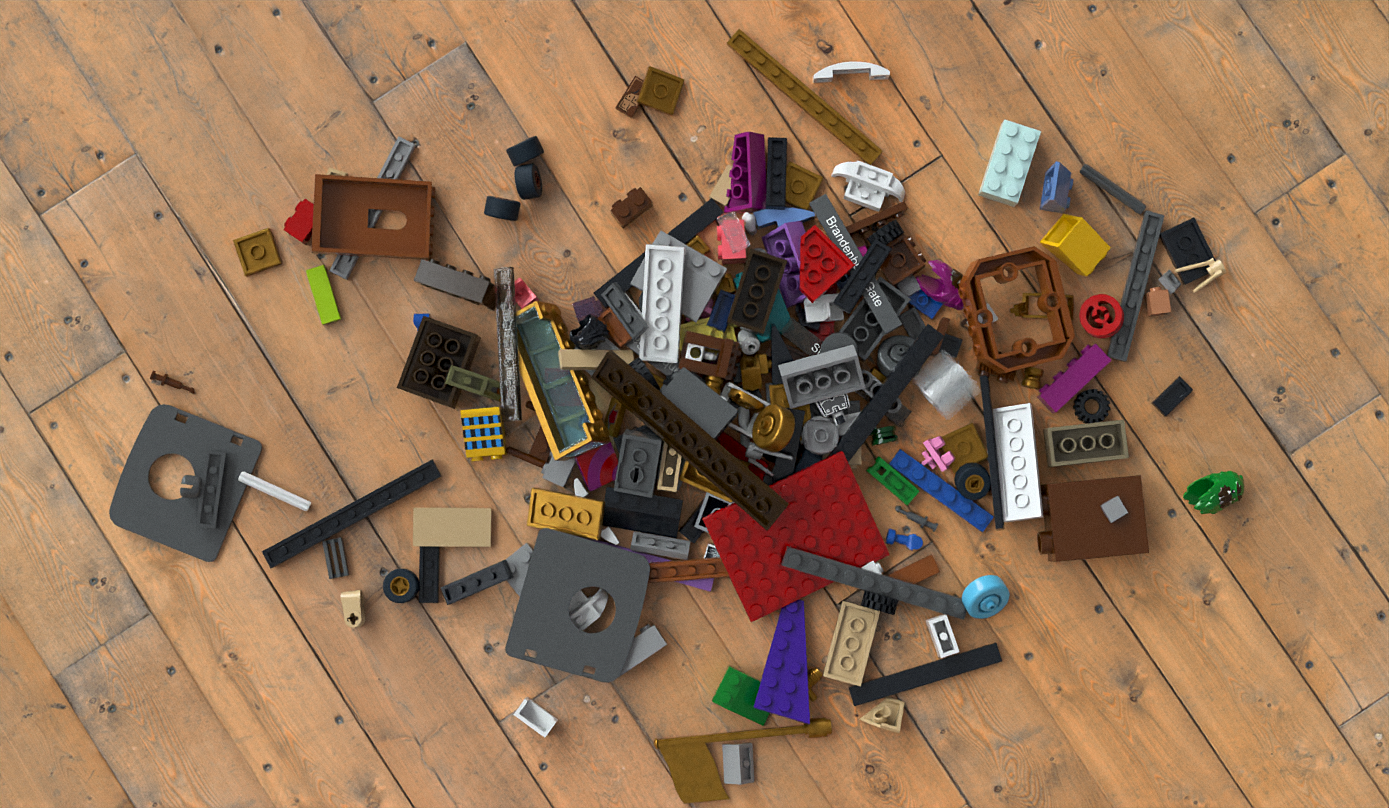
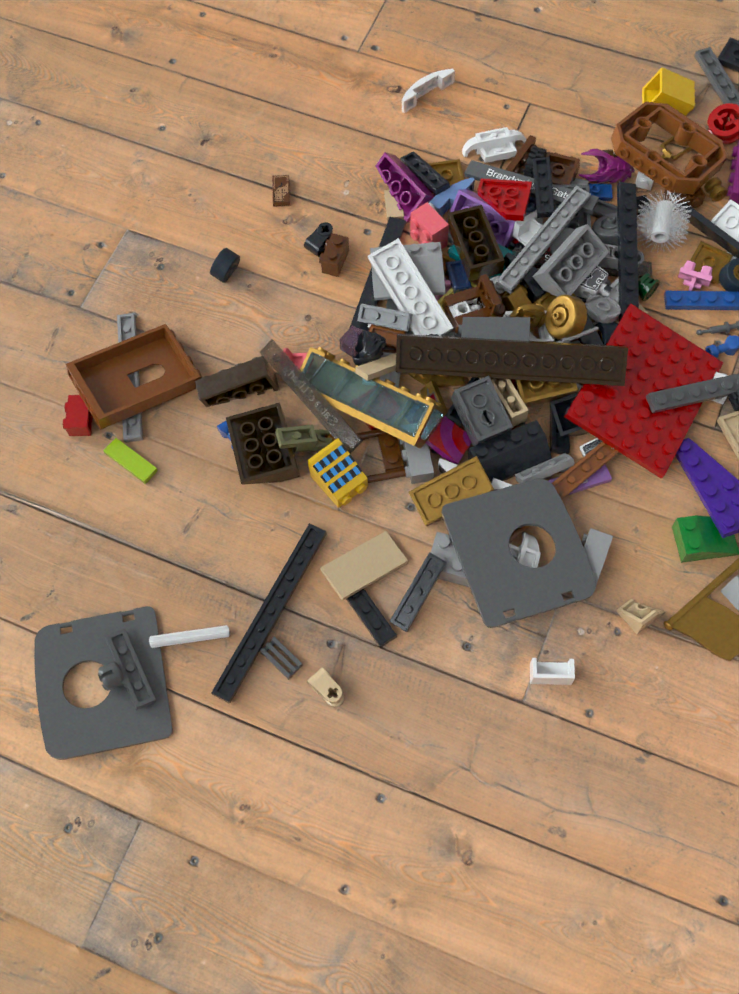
camera: 30 degrees left, 20 degrees down
(171, 382) = (38, 607): reddish brown piece -> none
(257, 252) = (52, 463): pearl gold tile -> none
(396, 590) = (353, 633): black wheel -> none
(502, 208) = (235, 311): black wheel -> none
(528, 181) = (242, 282): black wheel -> none
(626, 181) = (316, 241): none -> black piece
(642, 719) = (638, 615): none -> tan slope
(660, 90) = (298, 174): pearl gold tile -> none
(733, 232) = (425, 212): clear slope -> none
(804, 97) = (405, 121): pearl gold plate -> none
(817, 334) = (543, 239): none -> light grey tile
(893, 481) = (680, 314): green plate -> none
(1009, 163) = (581, 77): light aqua brick -> none
(1056, 188) = (625, 68): medium blue slope -> none
(1113, 189) = (661, 55): dark grey axle -> none

